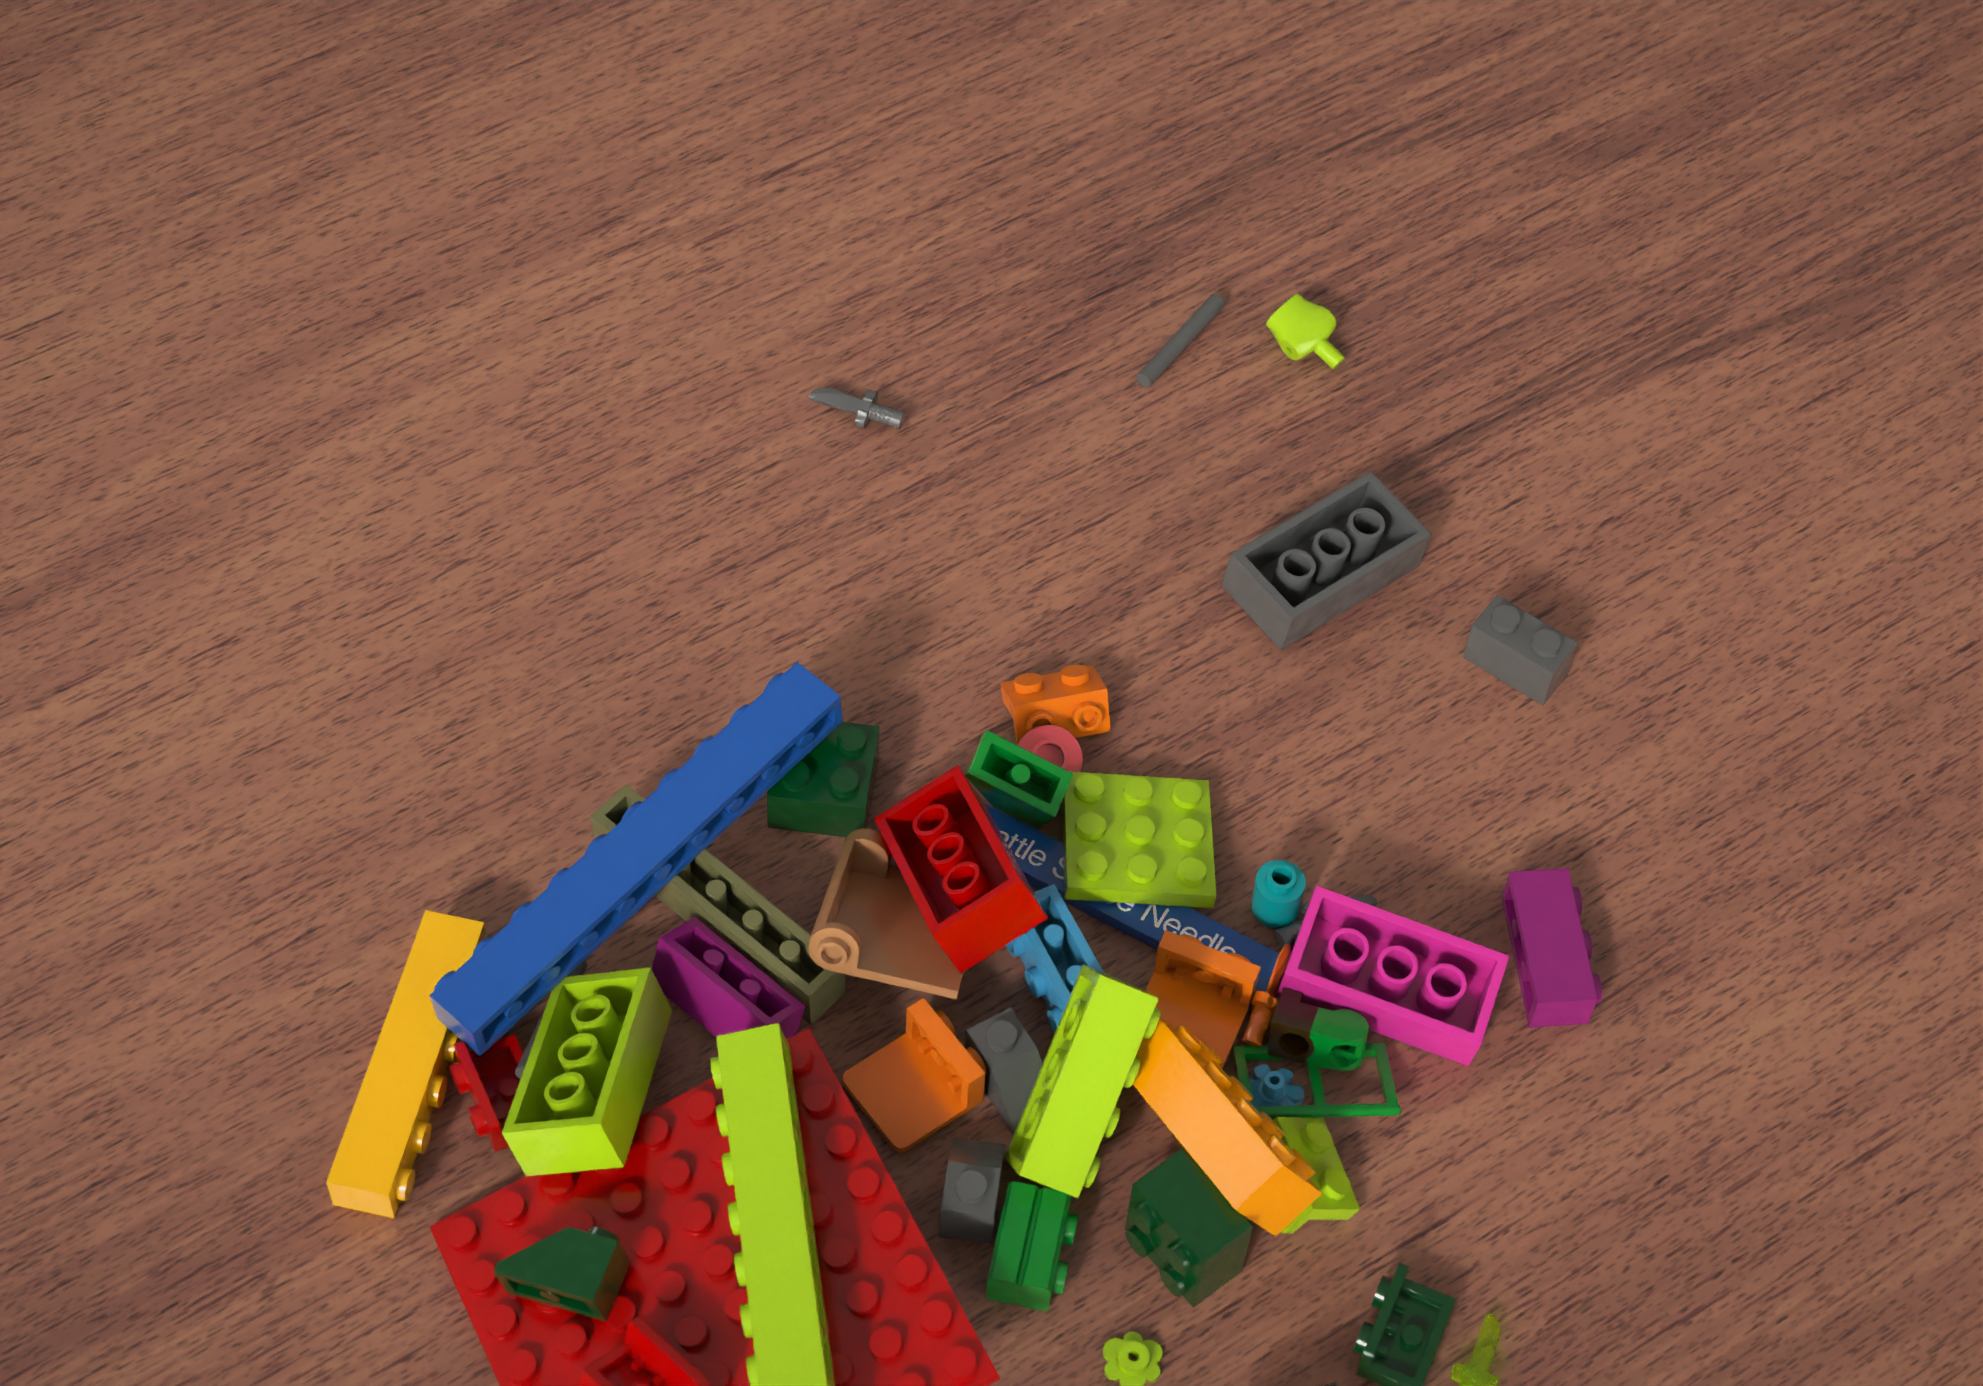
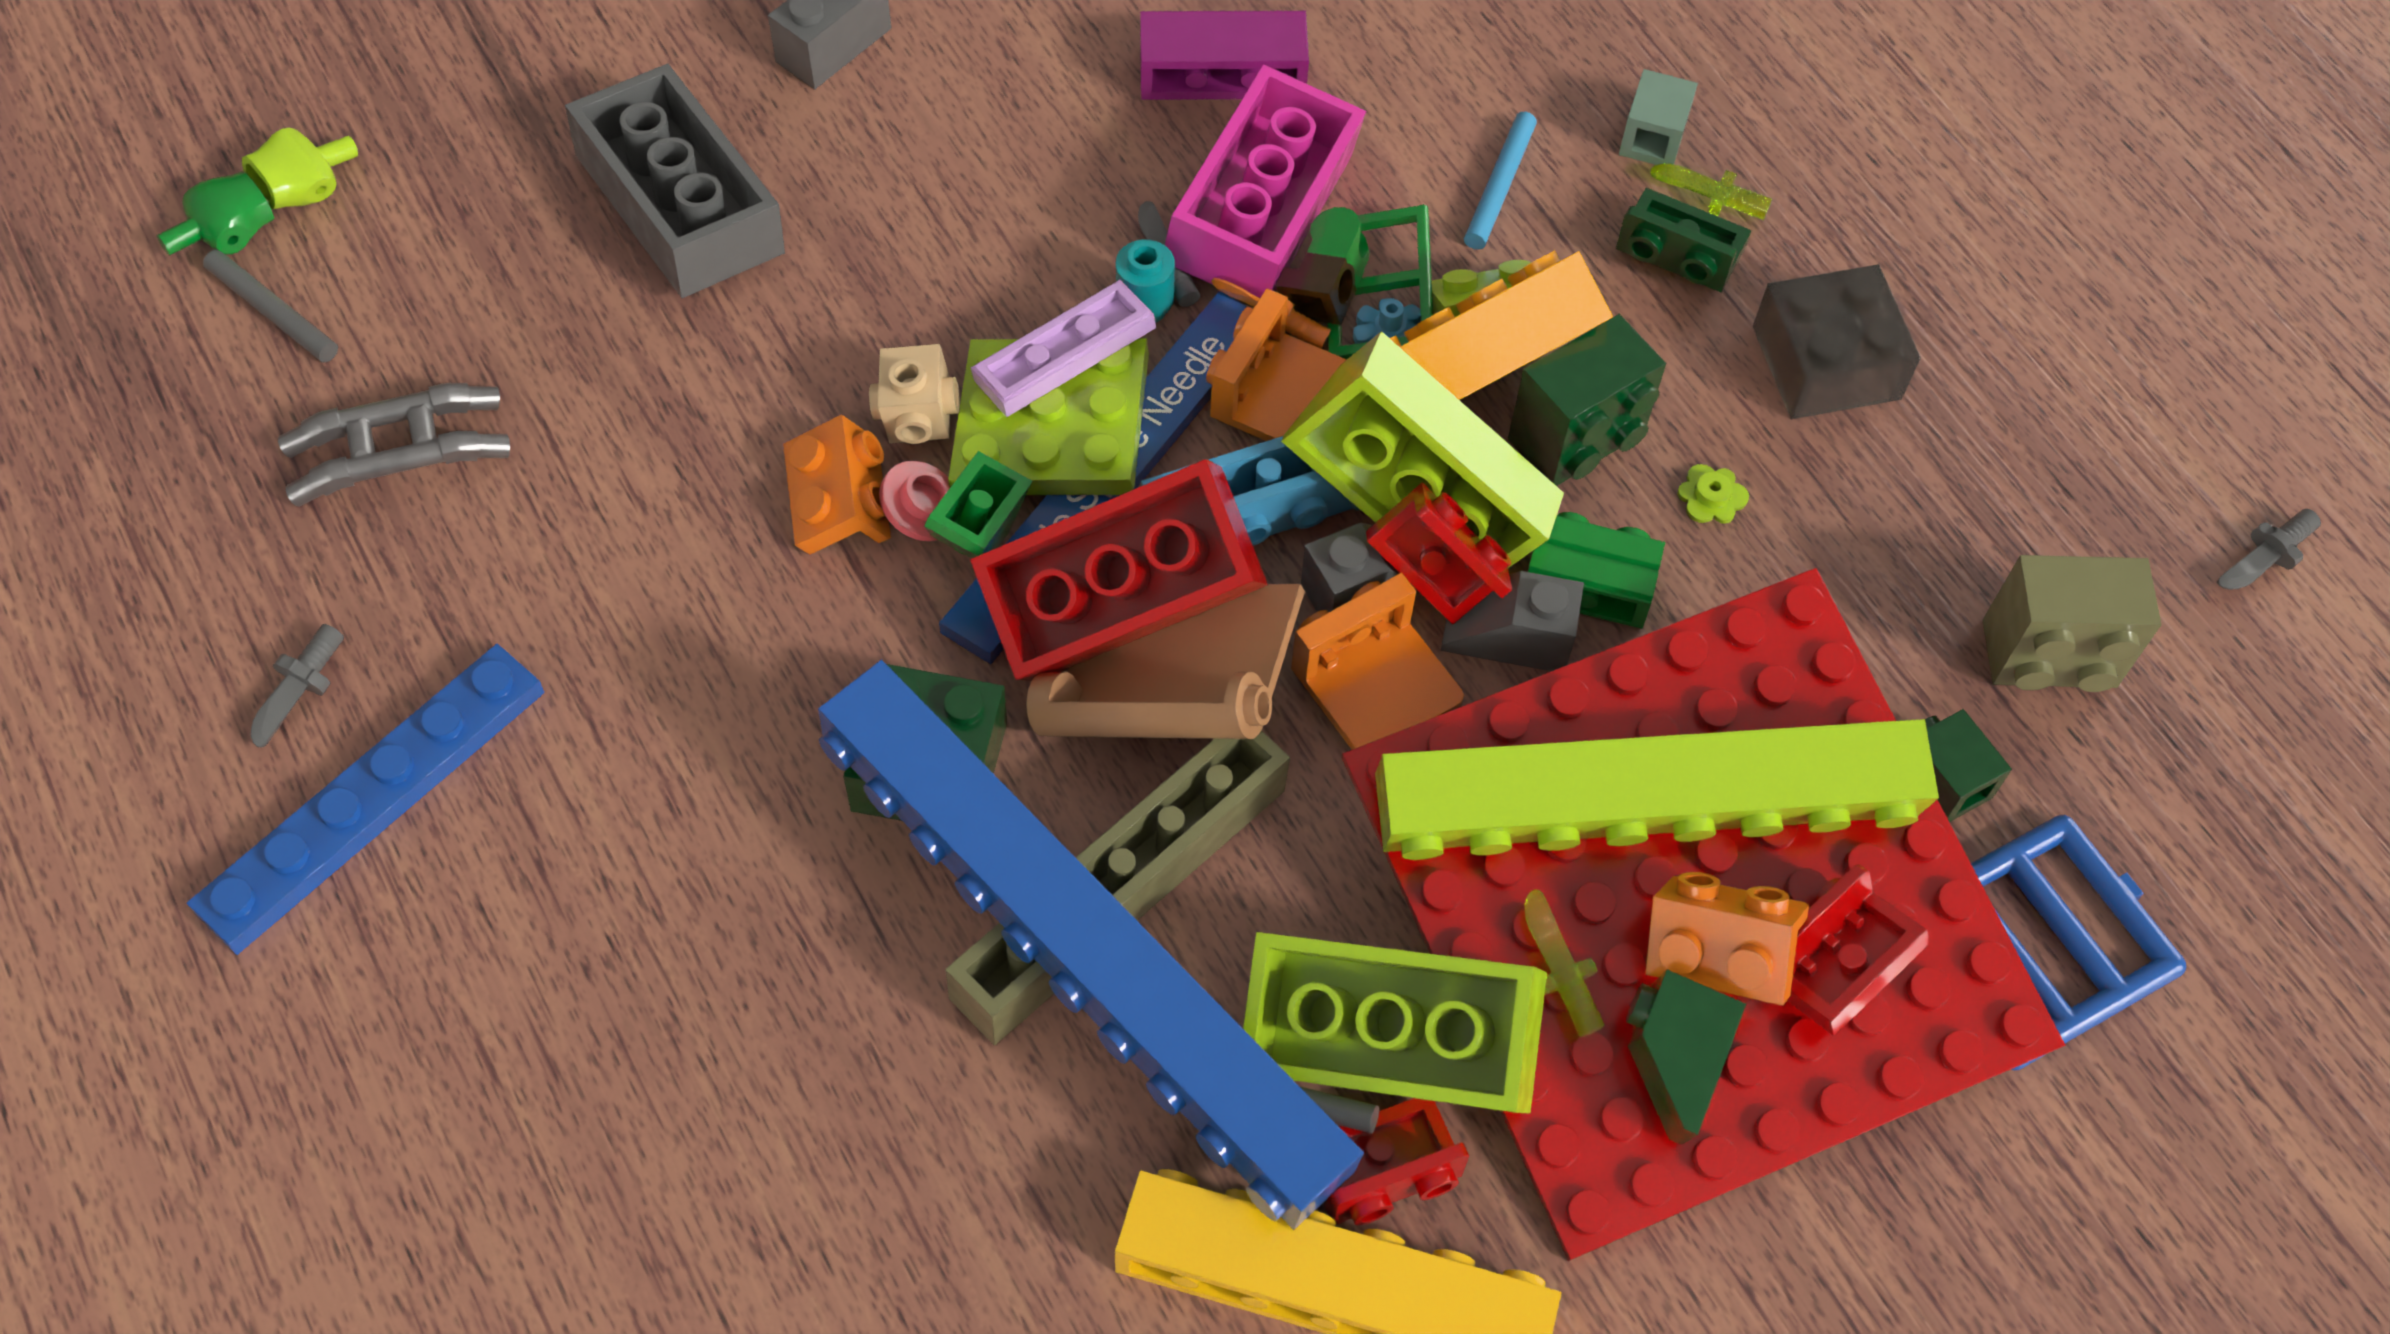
camera: 85 degrees left, 5 degrees up
(630, 1191) = (1565, 974): none -> clear neon green piece
(652, 1287) = (1726, 936): none -> orange bracket
(720, 984) = (1257, 871): magenta brick -> none
(778, 463) = (365, 799): none -> blue plate
(1007, 1103) = (1439, 553): none -> red bracket
(1059, 446) = (425, 446): none -> flat silver piece
(1138, 739) = (914, 394): none -> tan brick
(1190, 832) = (1063, 348): none -> lavender tile
(1251, 297) = (221, 213): none -> green piece
(1457, 1185) = (1500, 180): none -> dark azure bar
(1548, 1316) = (1657, 118): none -> sand green brick

